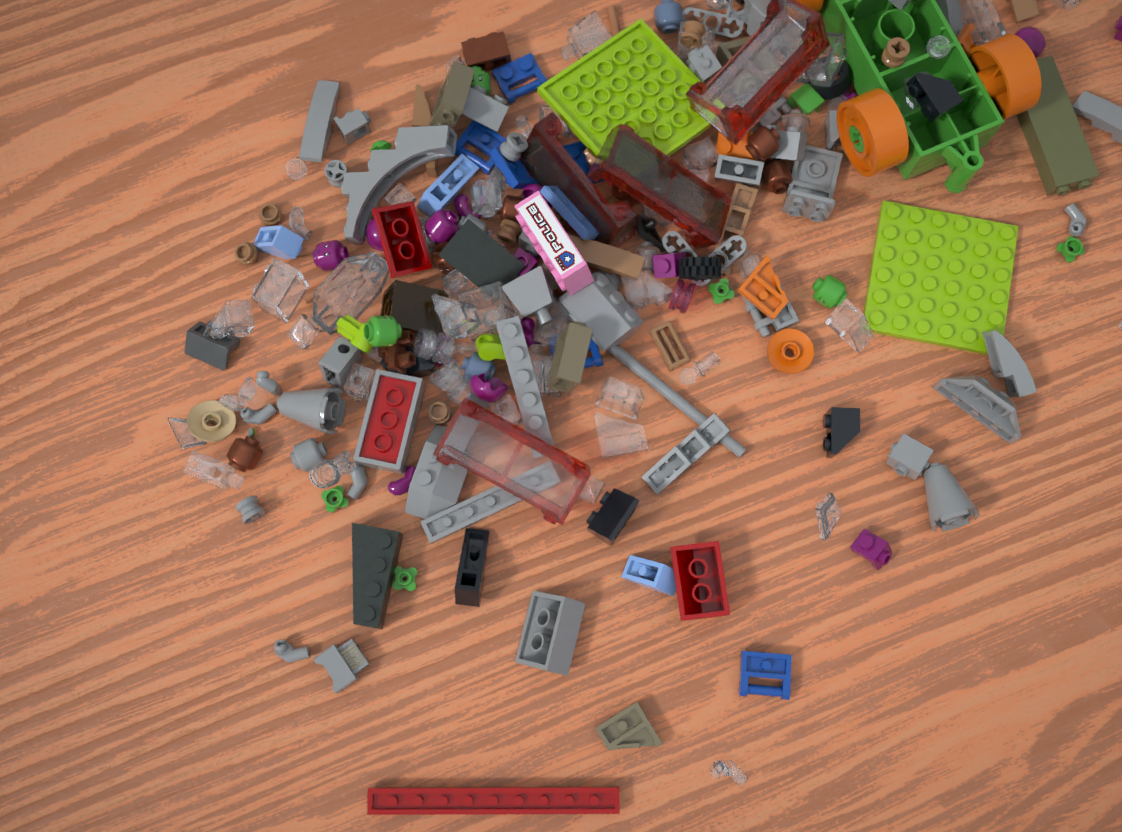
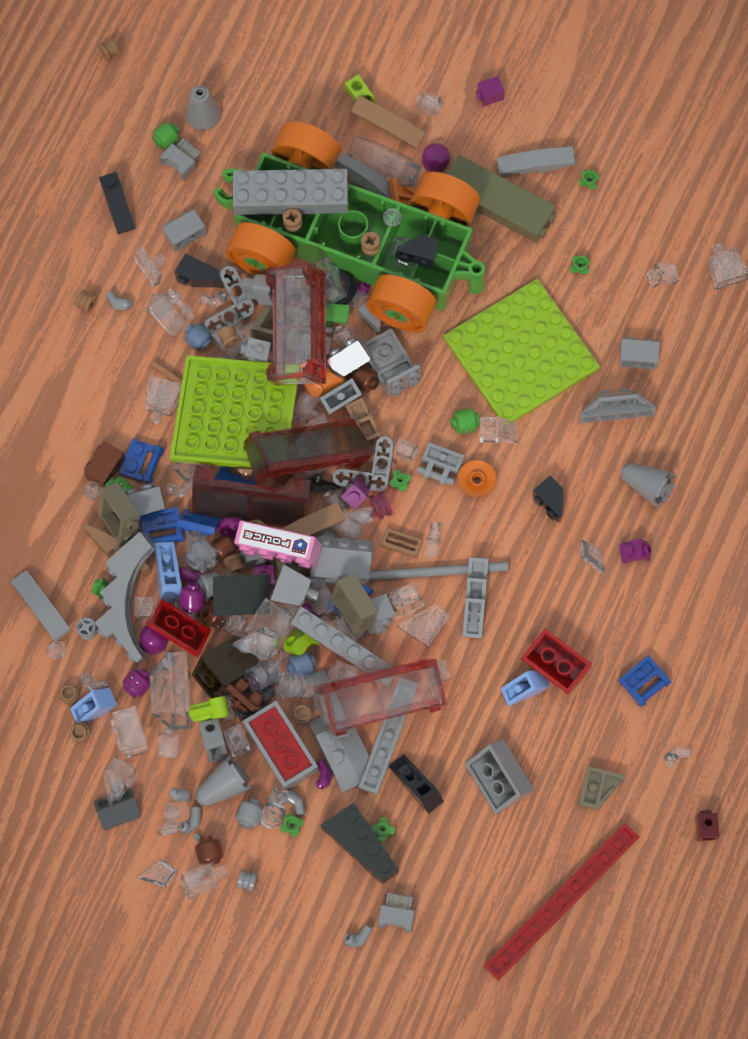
camera: 45 degrees left, 5 degrees down
(211, 413) = (168, 845): tan dish -> none
(353, 125) = (65, 588): light grey brick -> none
(382, 331) = (228, 691): bright green head -> none
(488, 390) = (323, 668): magenta hair -> none
(513, 146) = (188, 508): light grey wheel -> none
(570, 212) = (264, 516): medium blue tile -> none
(587, 390) = (384, 616): none -> light grey brick
(612, 516) = (469, 674): black slope -> none
(700, 268) = (377, 478): black tyre -> none
(763, 143) = (341, 367): copper head -> none
(764, 289) = (427, 456): orange wing -> none
(909, 457) = (605, 477): light grey head -> none
(1008, 364) = (610, 370): light grey slope -> none
(1051, 375) = (639, 353): none -> light grey brick
(1077, 221) = (568, 243): light grey arm -> none

